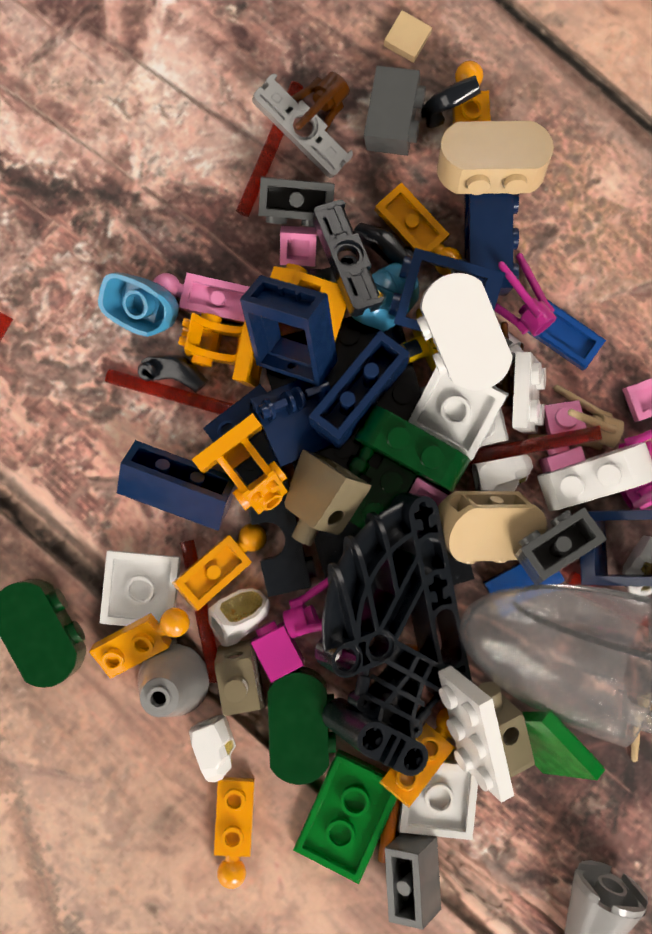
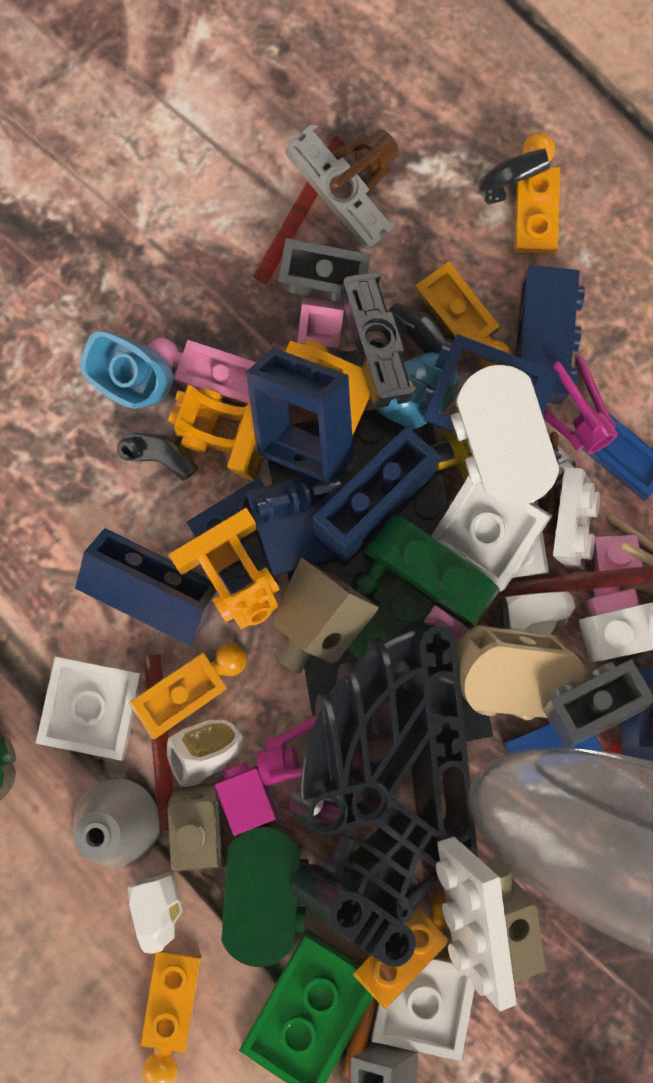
camera: 10 degrees right, 5 degrees down
(139, 641) = (80, 769): light orange plate -> none
(166, 392) = (148, 476): clear red bar -> none
(290, 568) = (272, 699): black arch -> none
(393, 110) = (447, 179): dark grey brick -> none
(407, 36) = (472, 99): tan tile -> none
(494, 157) = (559, 242): tan brick -> none
(558, 749) = (575, 953): green tile -> none

